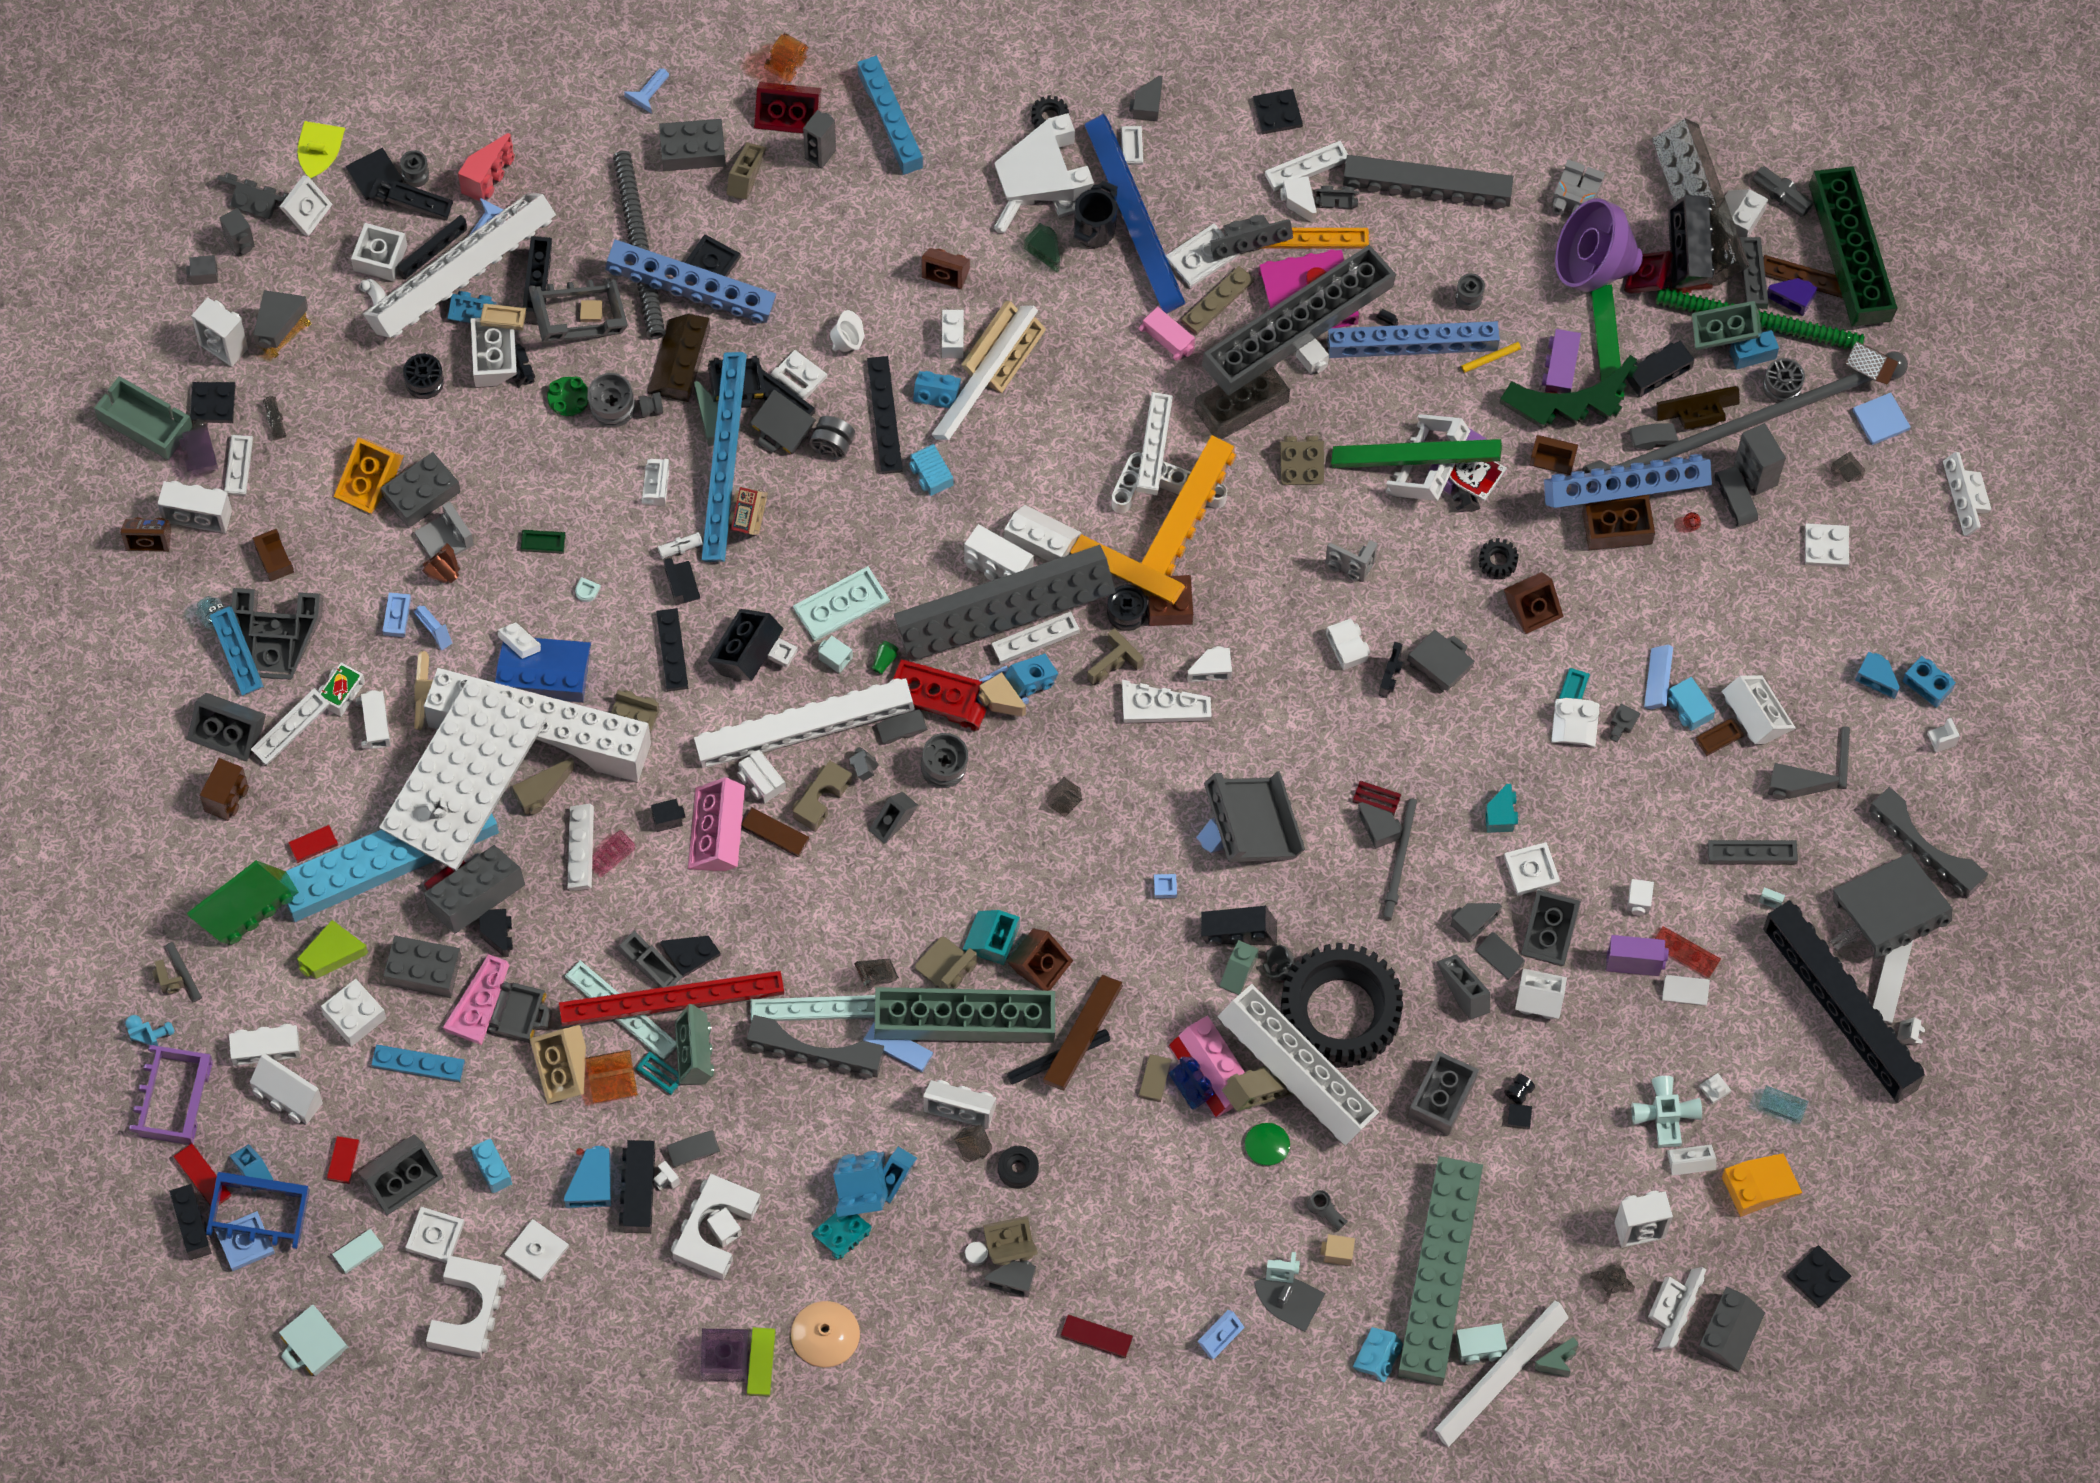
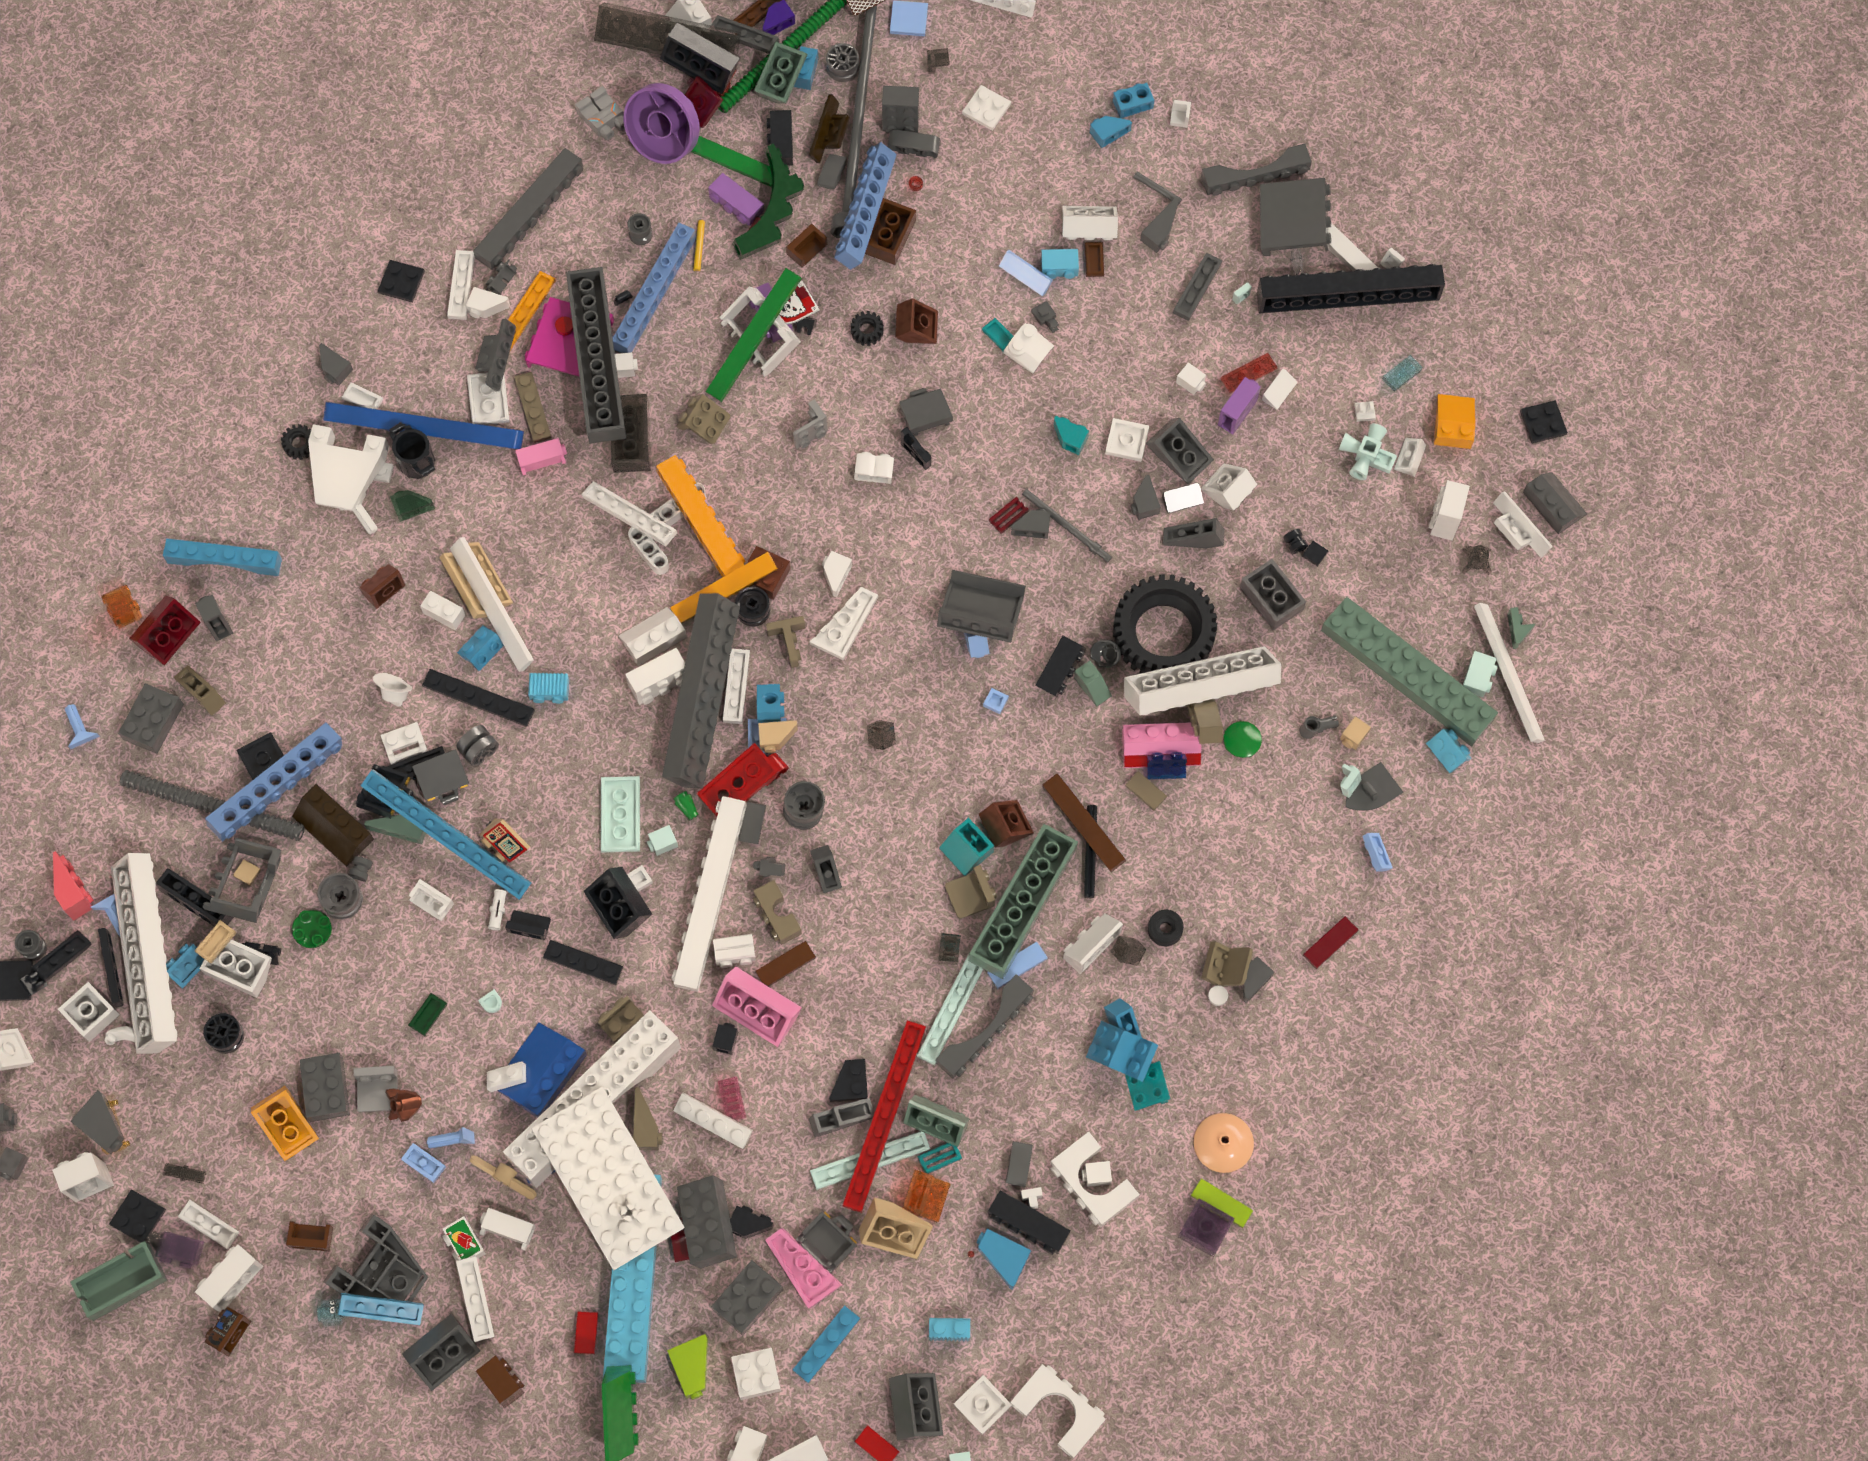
camera: 60 degrees left, 5 degrees up
(537, 1250) = (1037, 1330): white plate -> none

